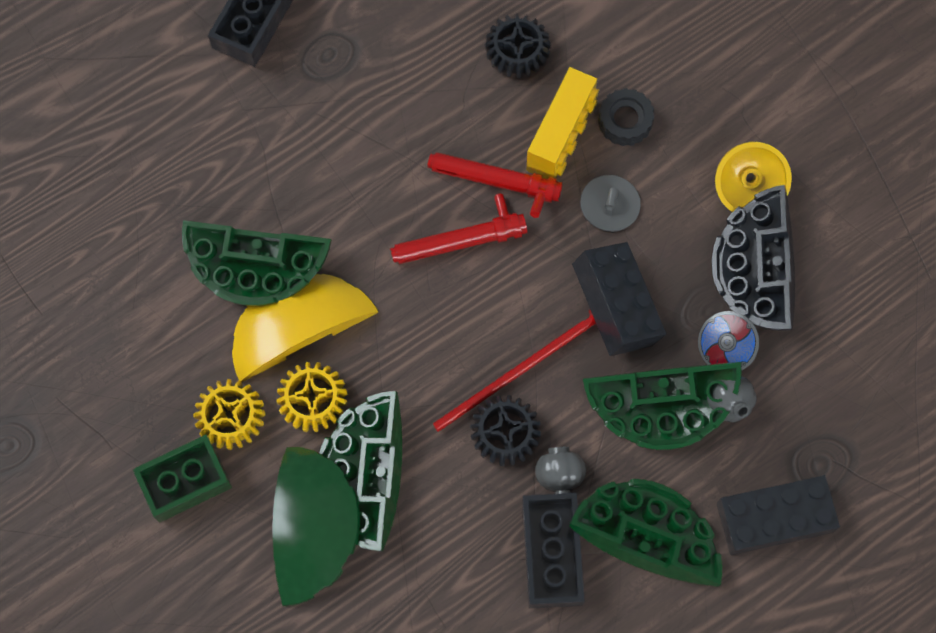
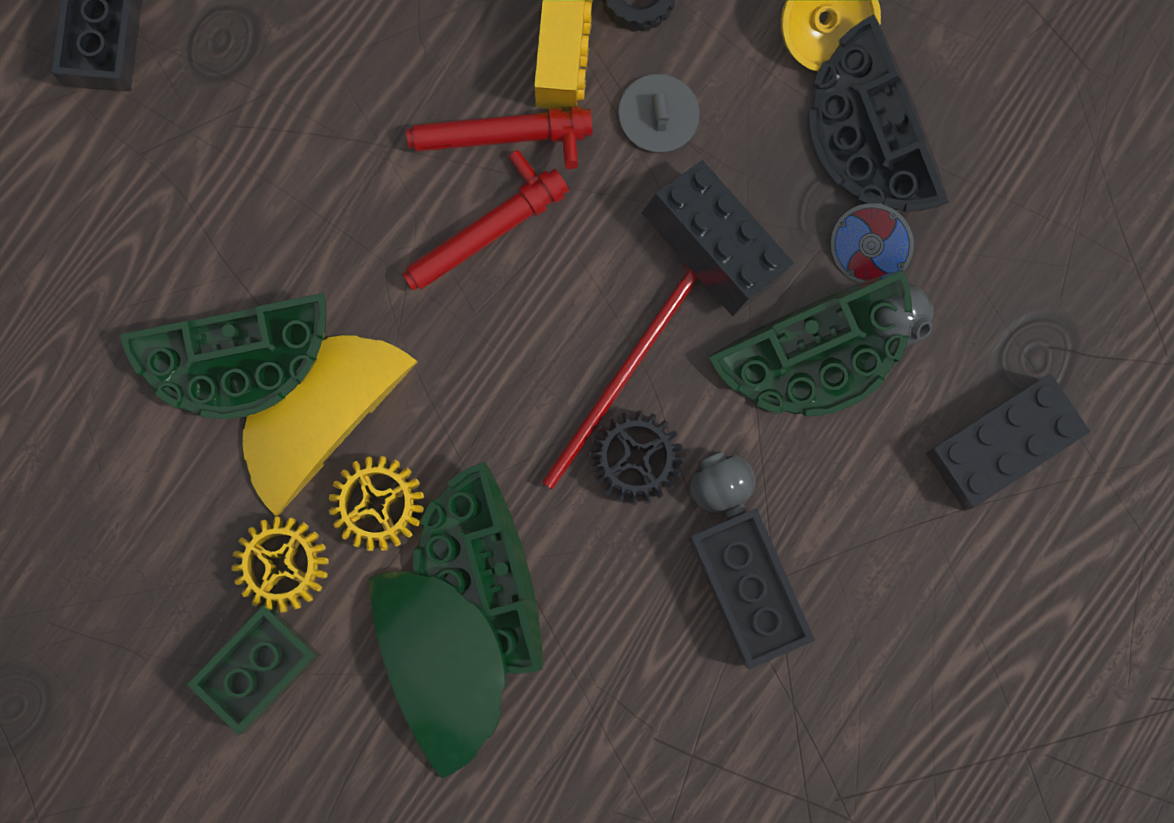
camera: 25 degrees left, 10 degrees up
(650, 530) = (861, 517): dark green brick -> none

